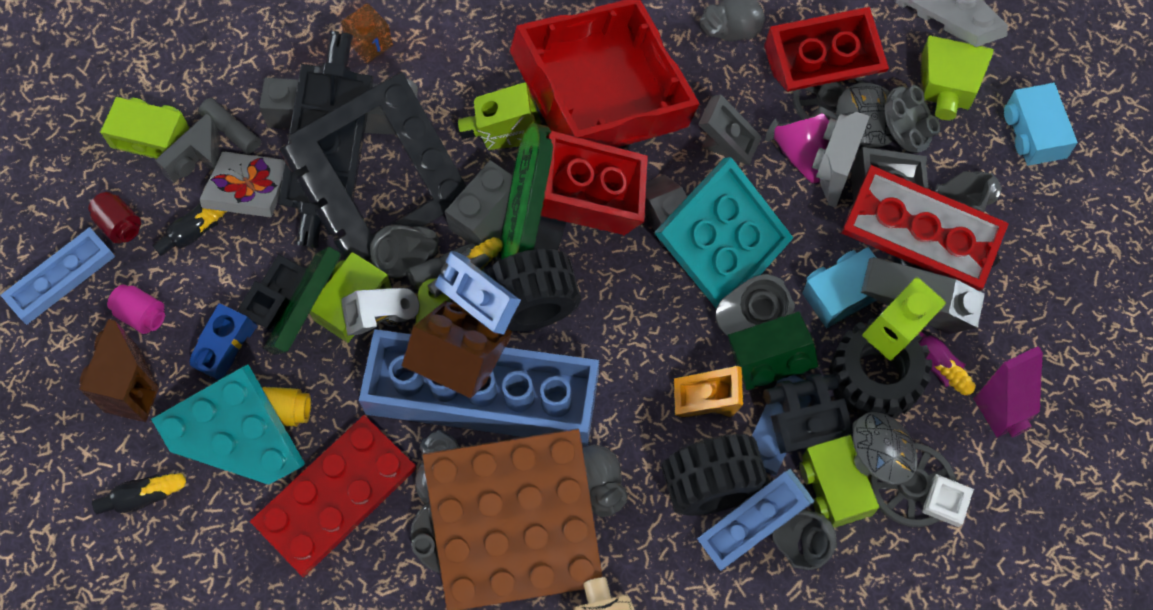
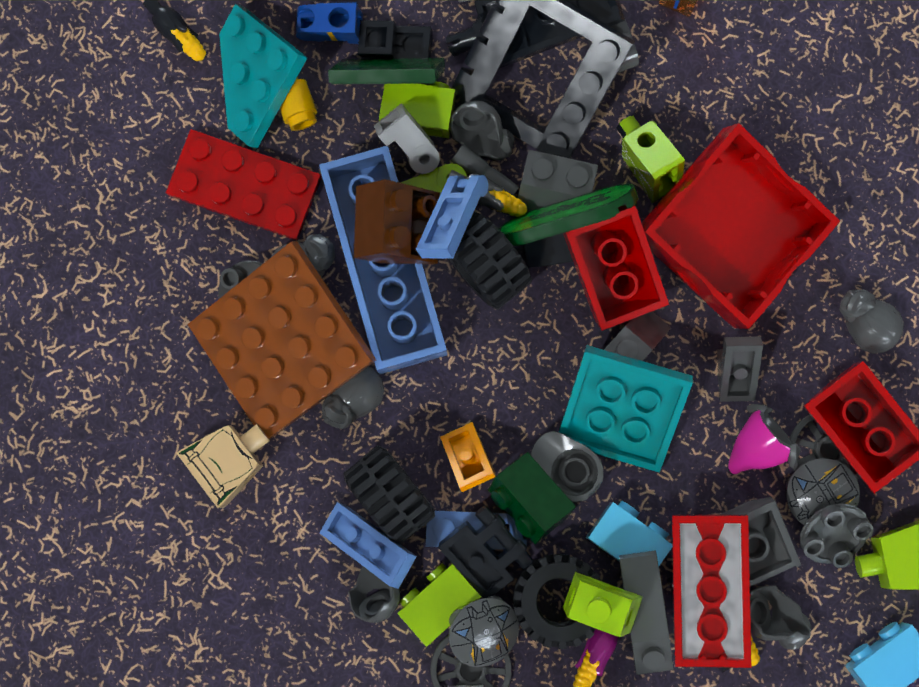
camera: 70 degrees right, 15 degrees up
(836, 160) = (744, 481): light grey slope -> none

